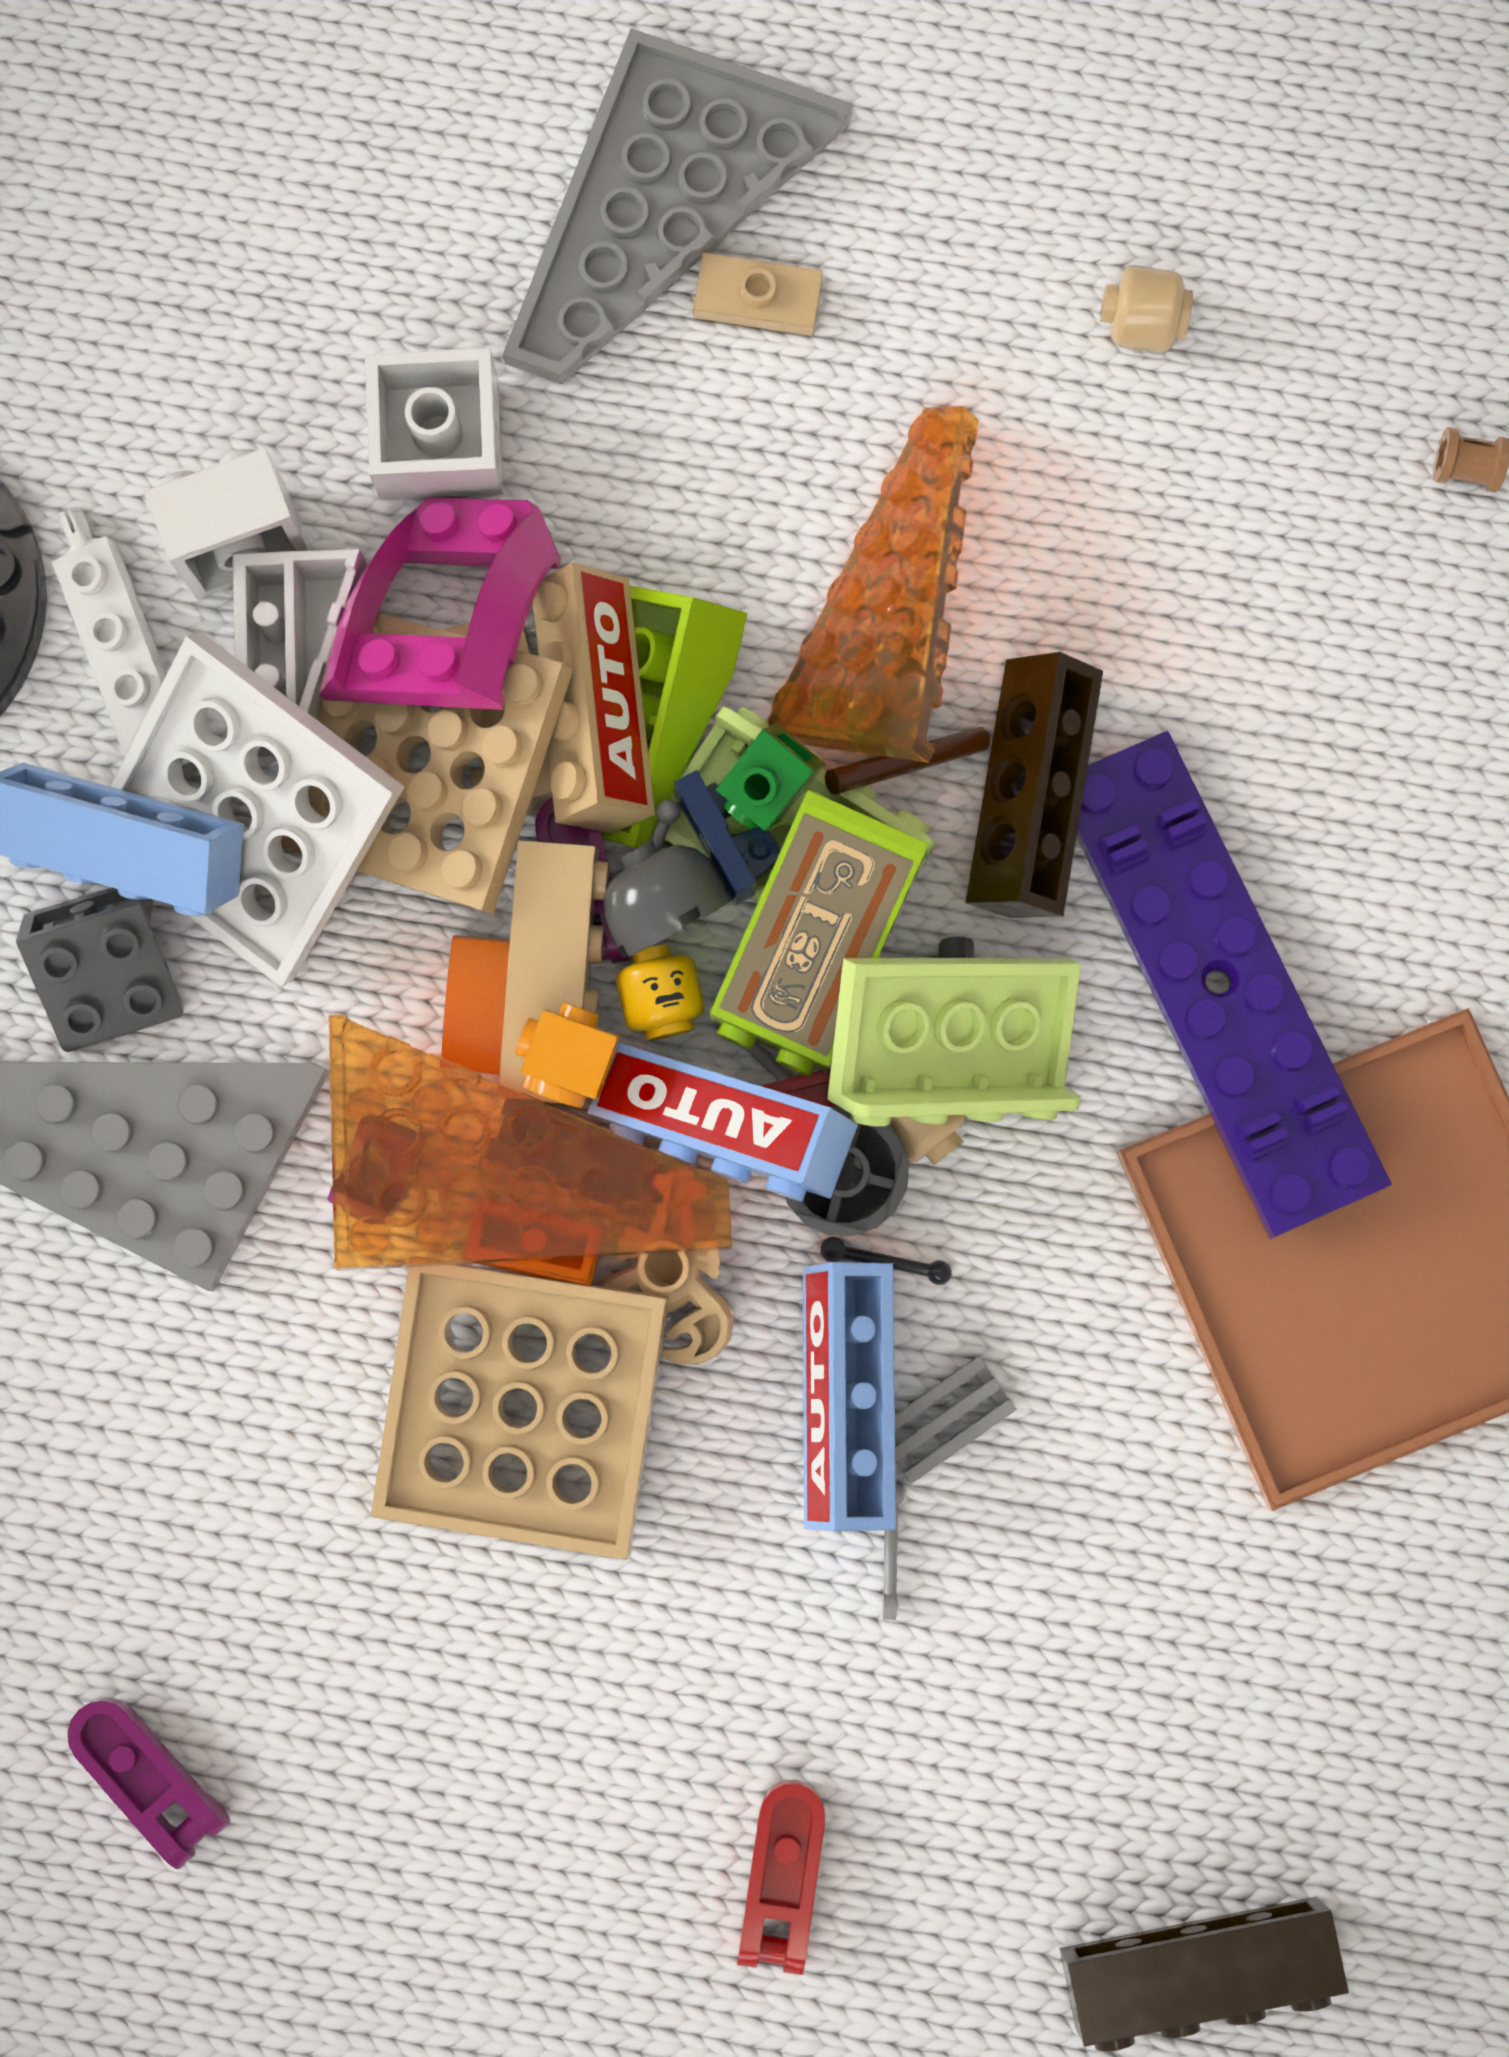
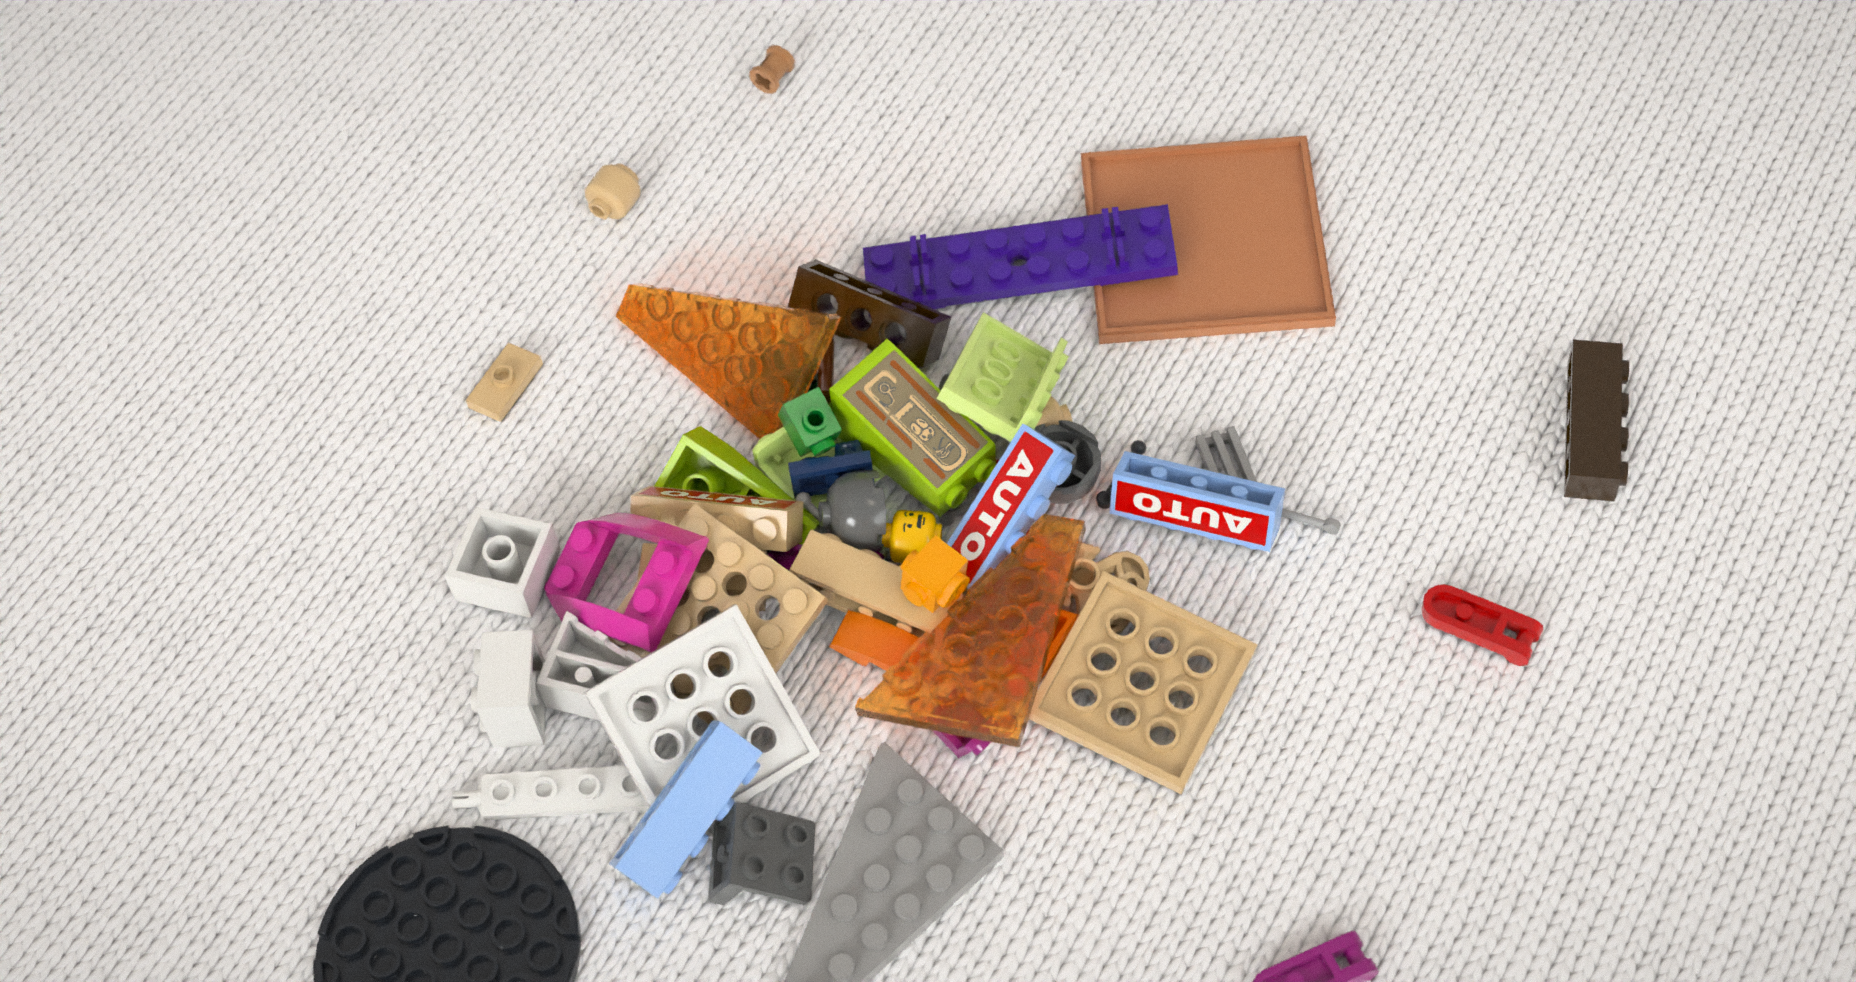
camera: 65 degrees left, 25 degrees down
(663, 177) = (413, 413): light grey wing -> none

